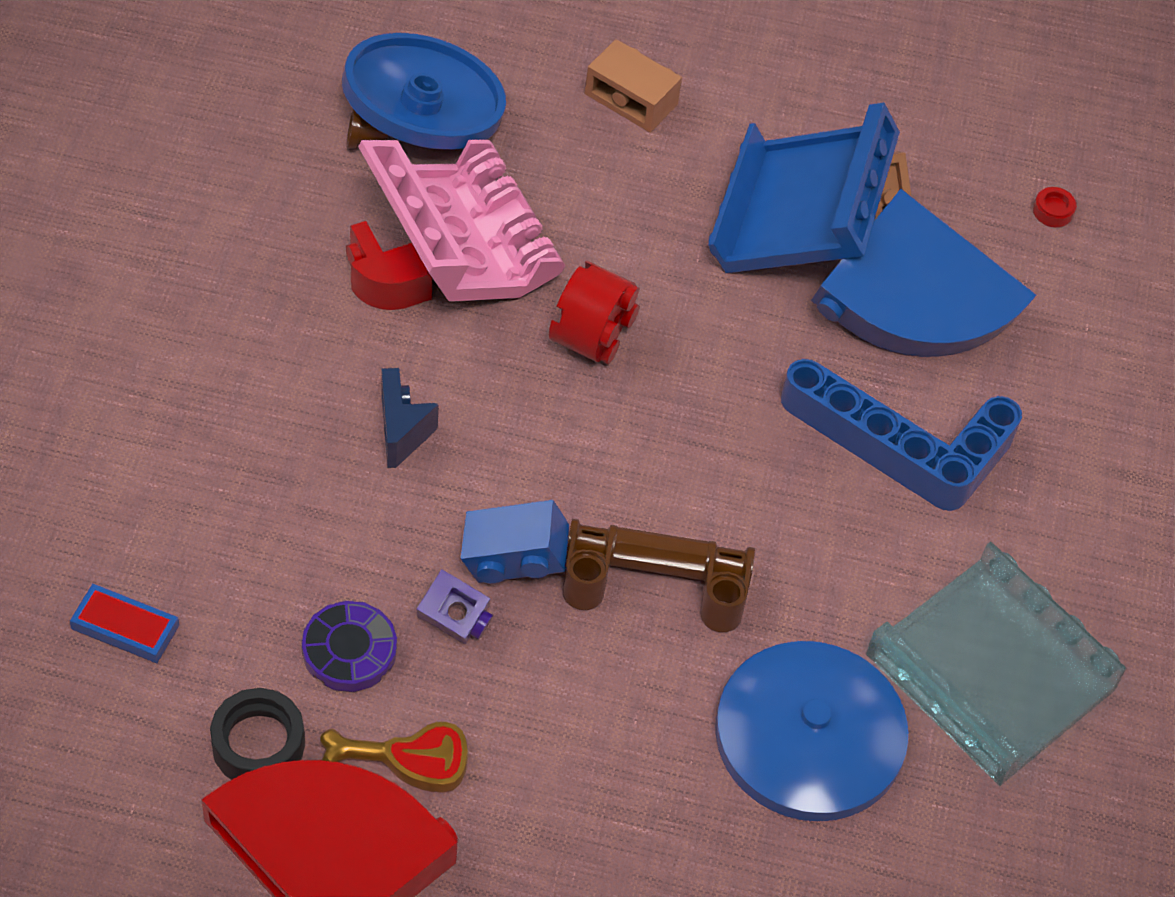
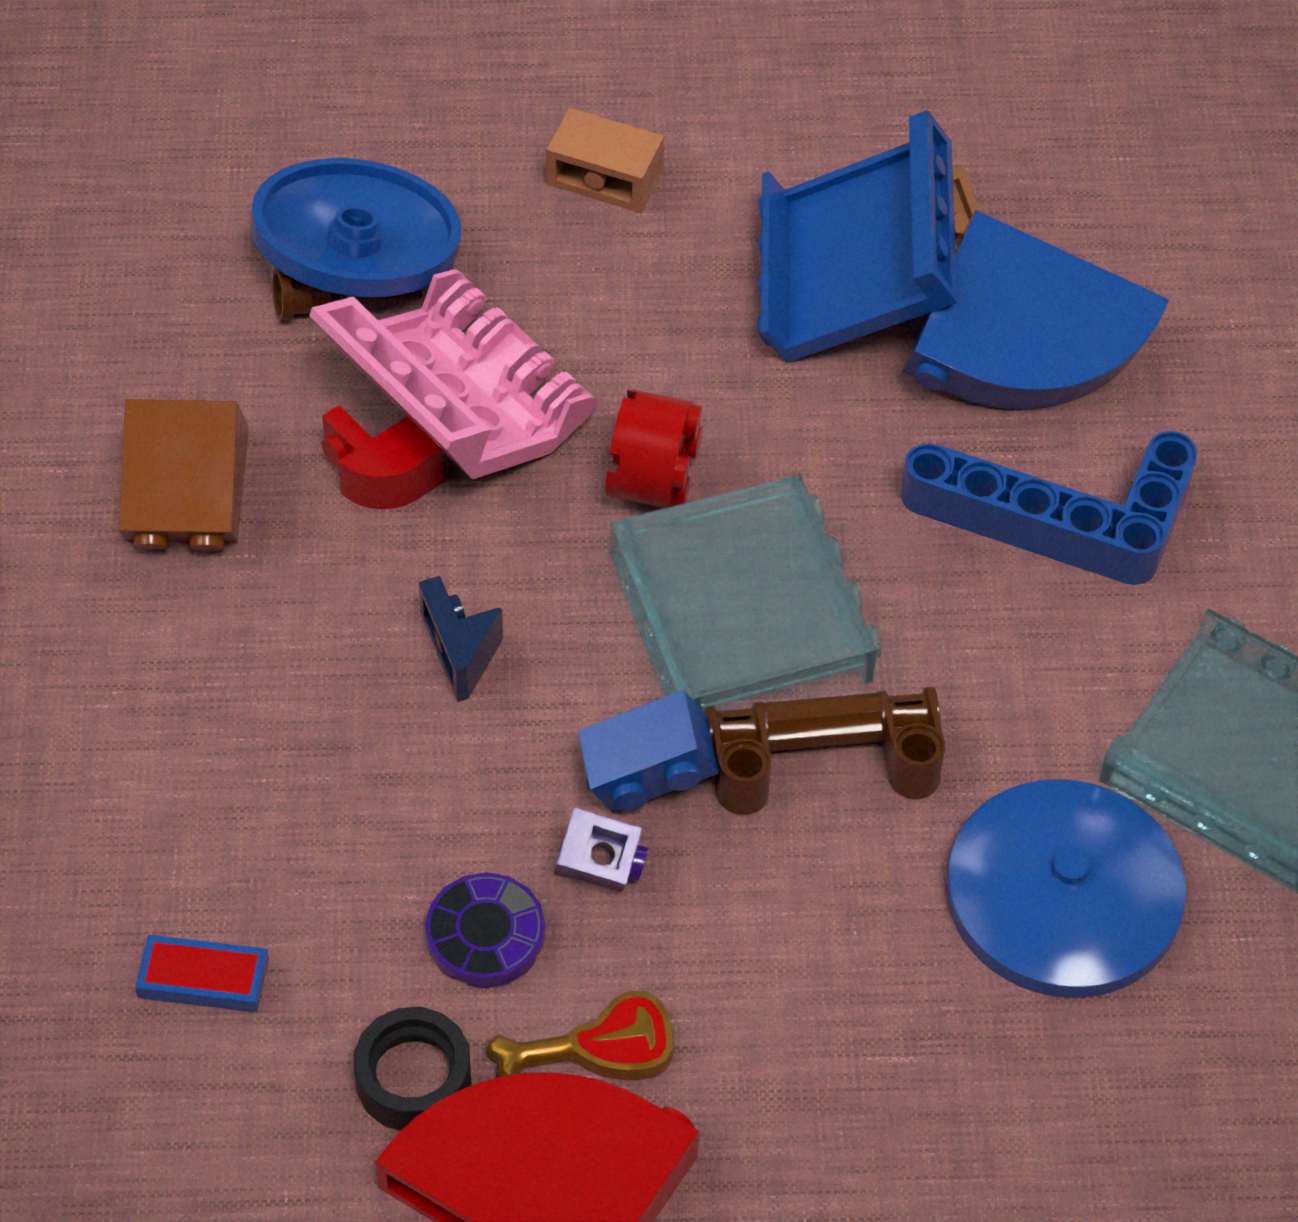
camera: 10 degrees left, 0 degrees up
(232, 243) = (182, 473): none -> dark orange slope
(630, 439) = (742, 593): none -> clear light blue panel
(1054, 207) = (1150, 187): red tile -> none

